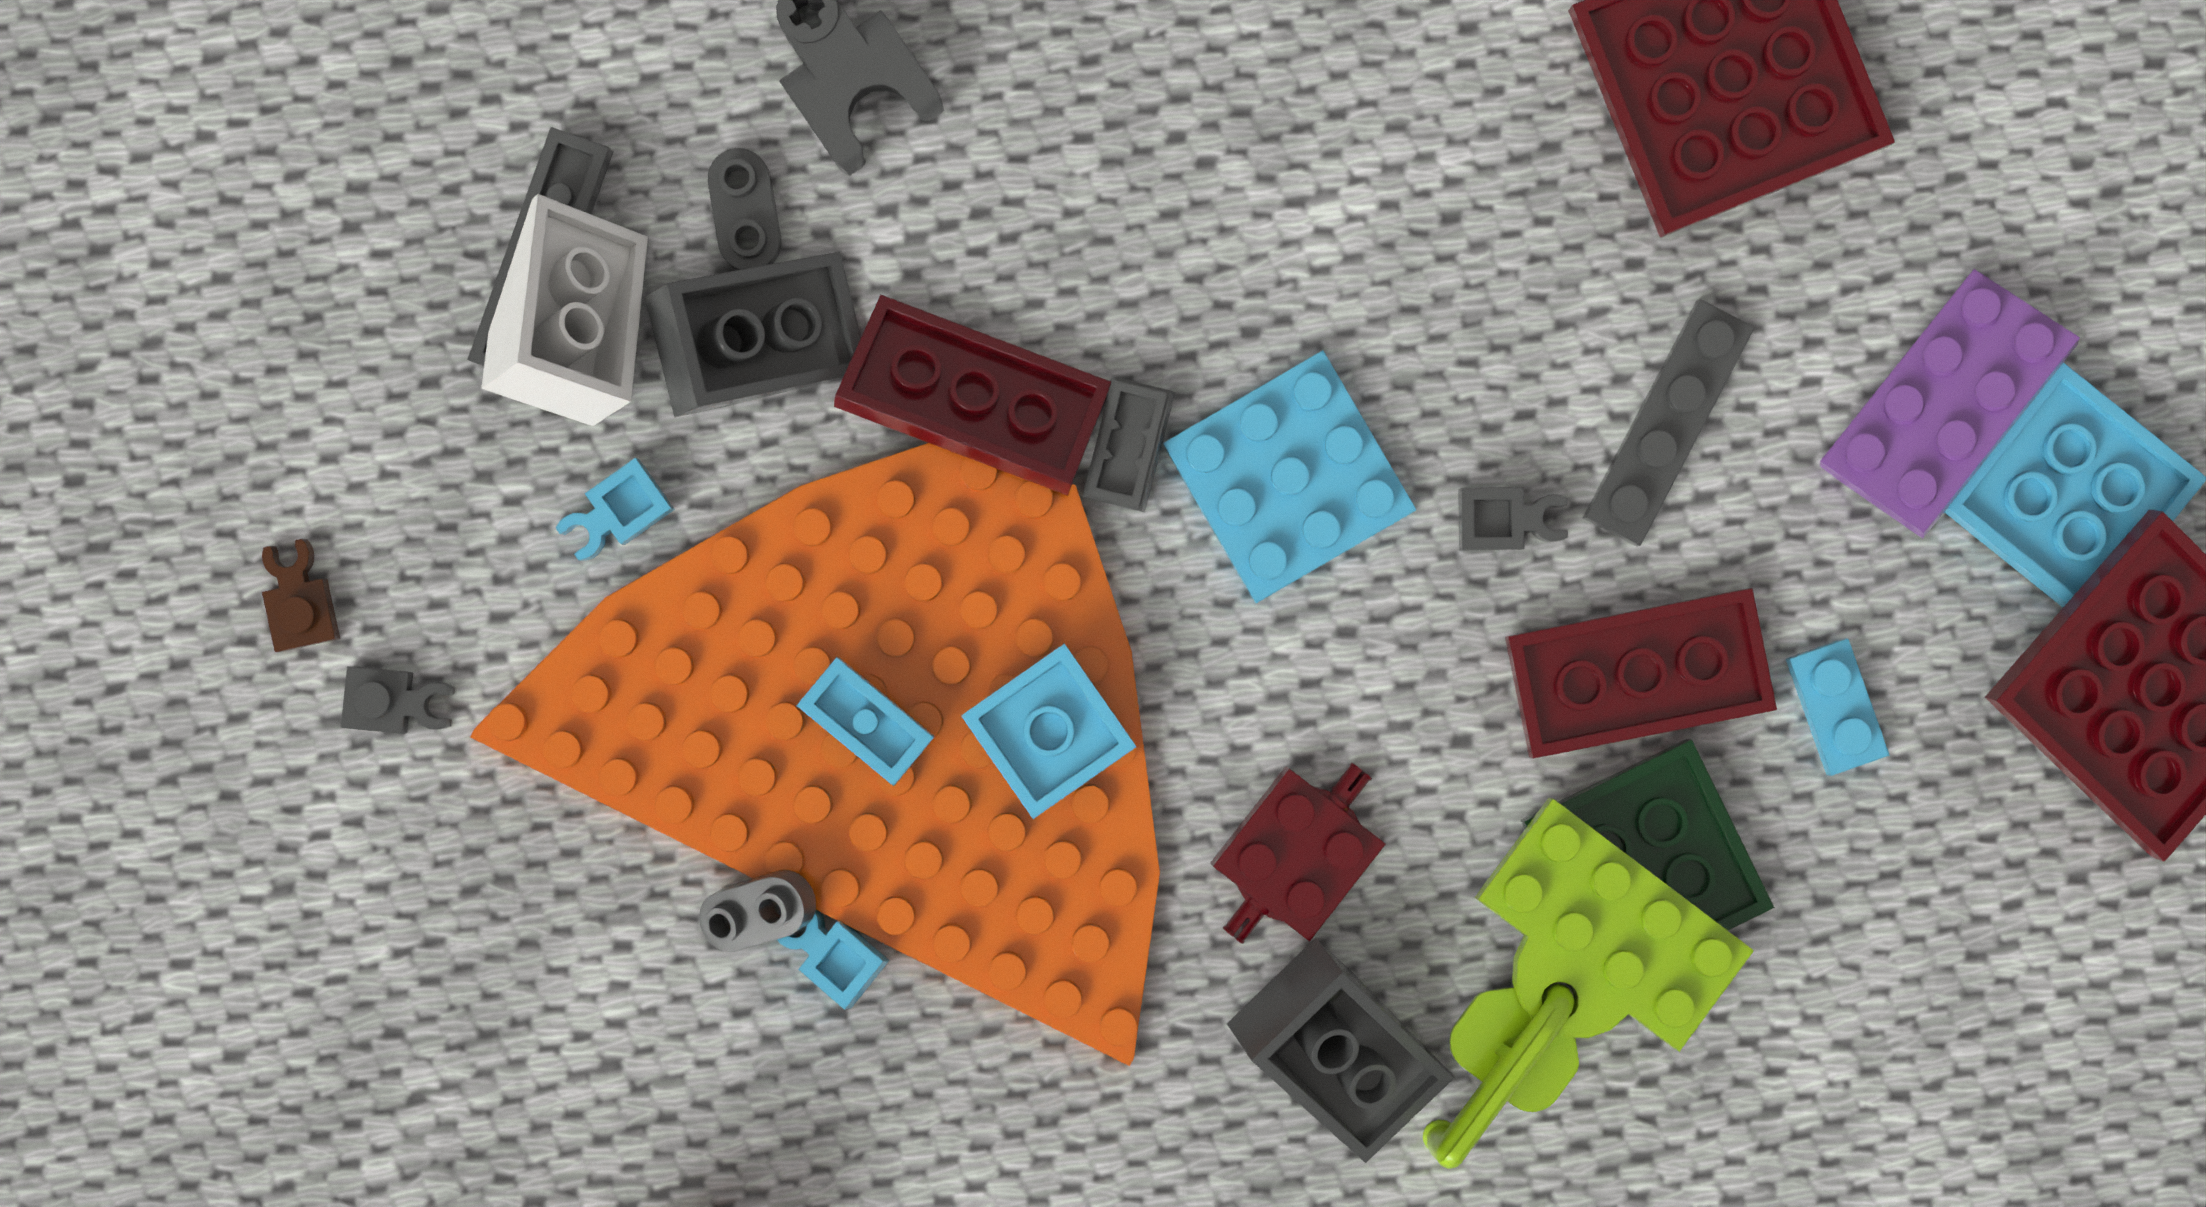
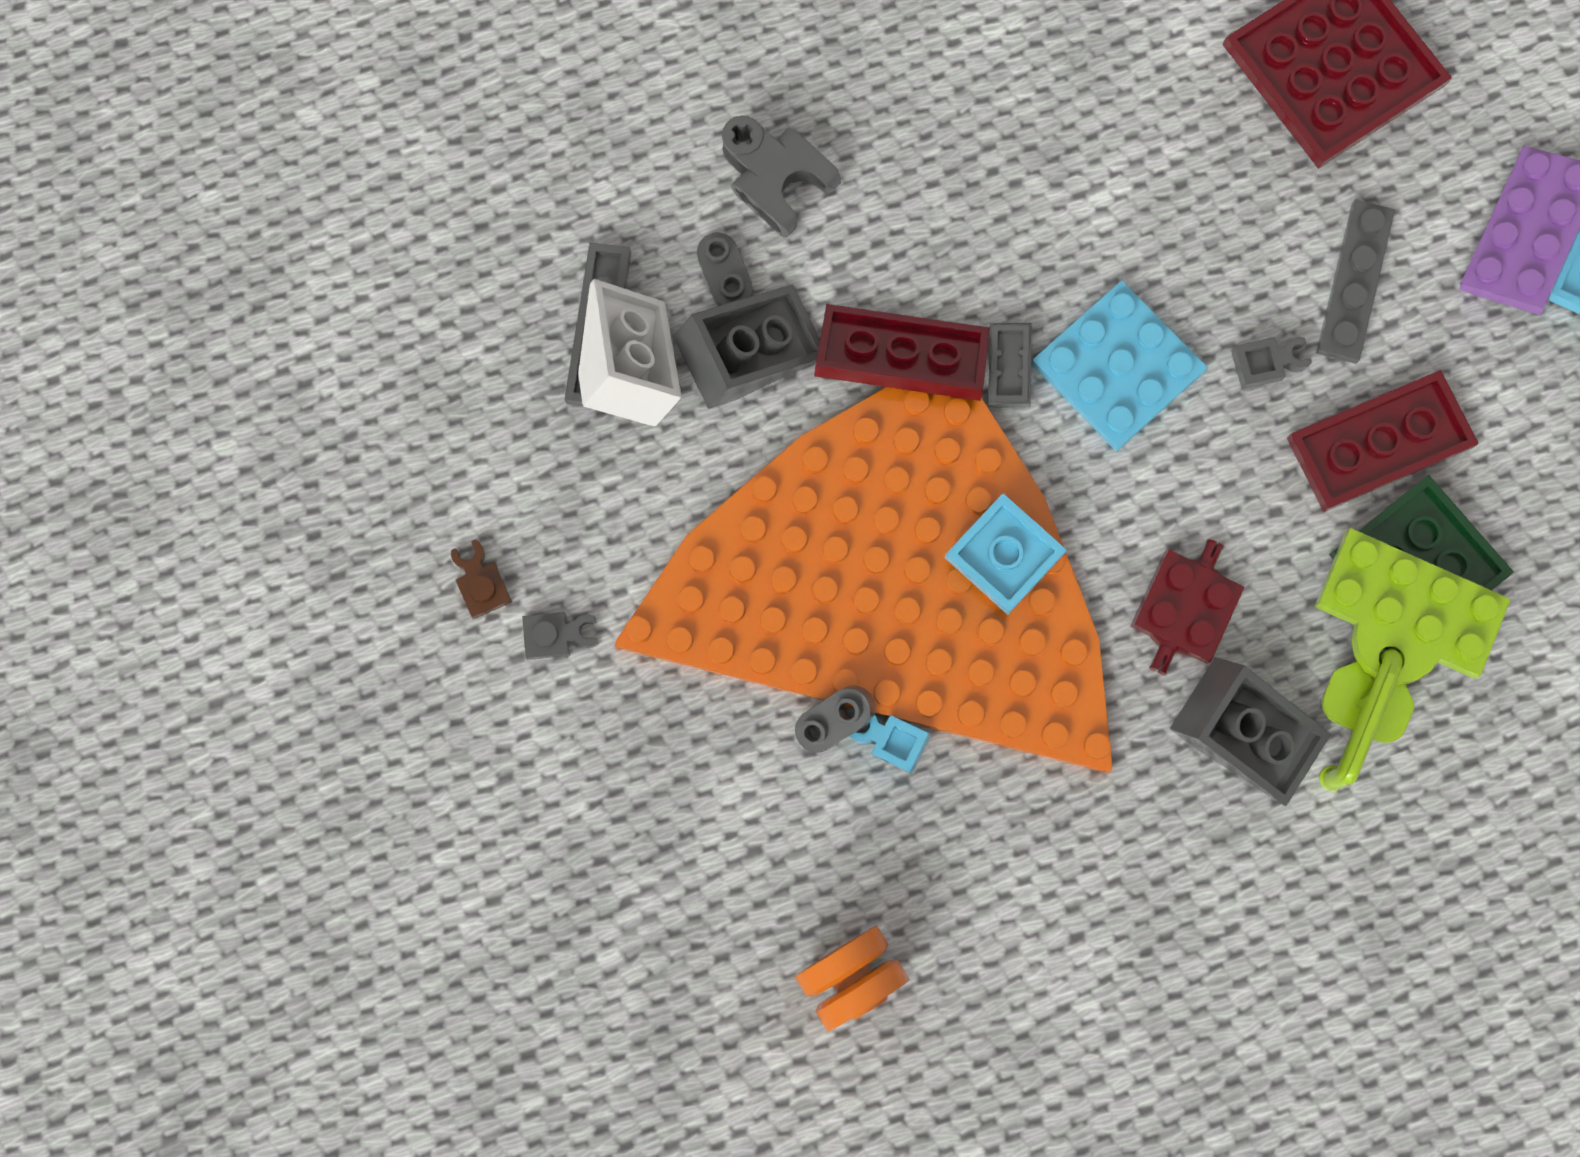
camera: 15 degrees left, 10 degrees down
(623, 505) = (685, 472): medium azure plate -> none
(865, 721) = (881, 573): medium azure plate -> none
(1837, 707) = (1516, 437): medium azure plate -> none

